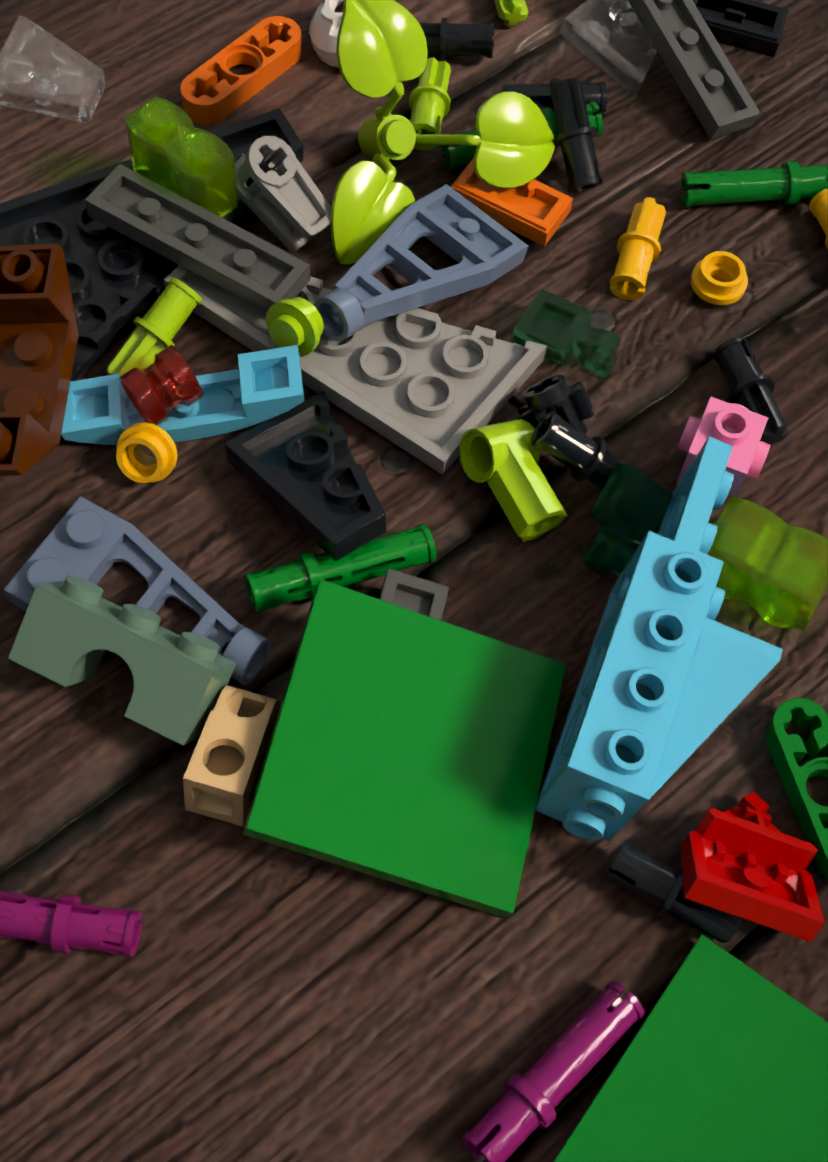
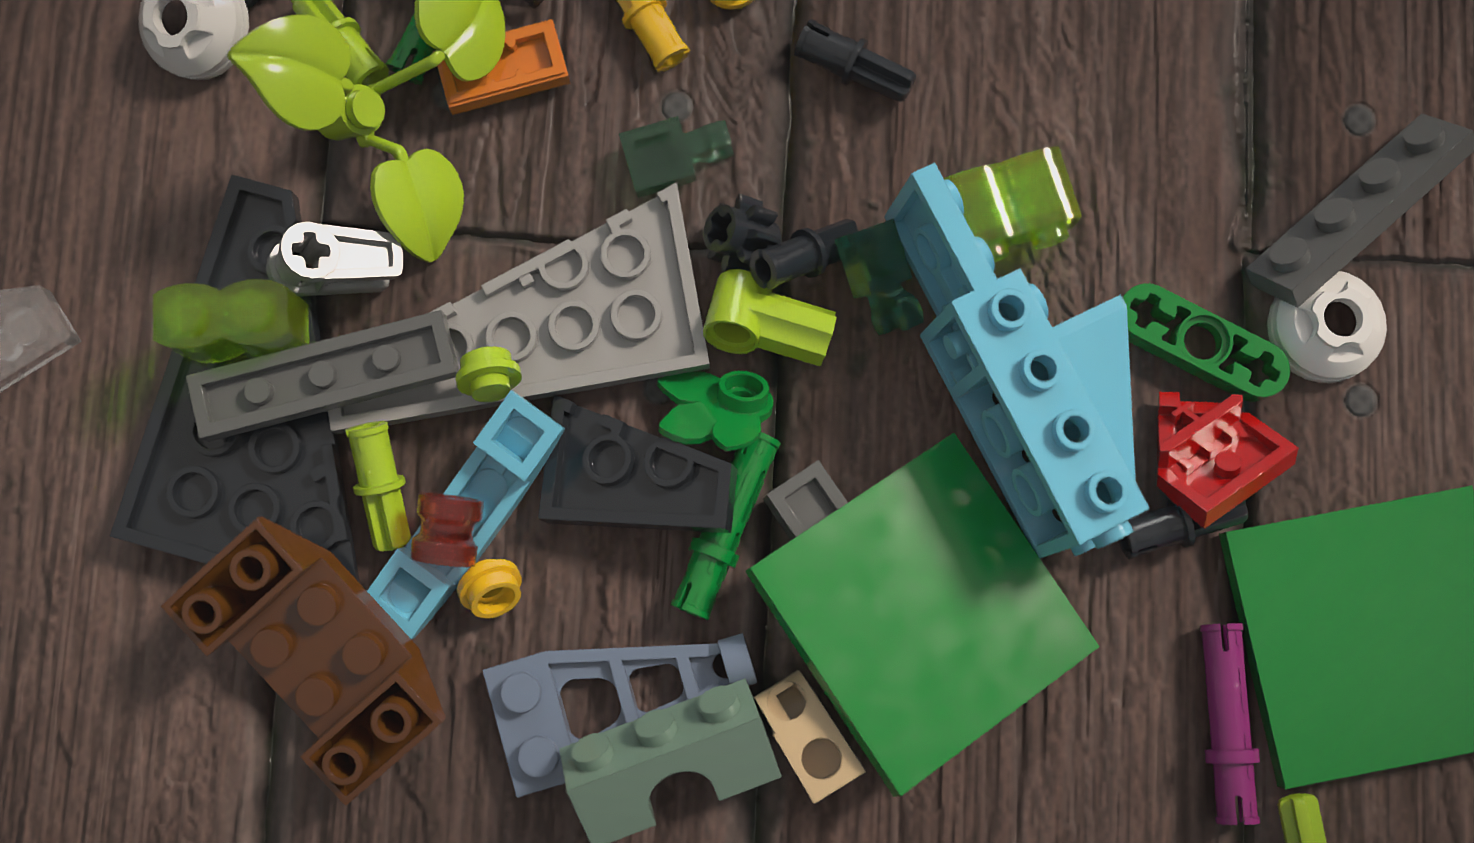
camera: 45 degrees left, 20 degrees up
(236, 89) = (128, 140): orange beam -> none
(419, 492) = (716, 408): none -> green plate
(451, 223) = (496, 142): sand blue plate -> none
(734, 426) = (890, 140): bright pink brick -> none

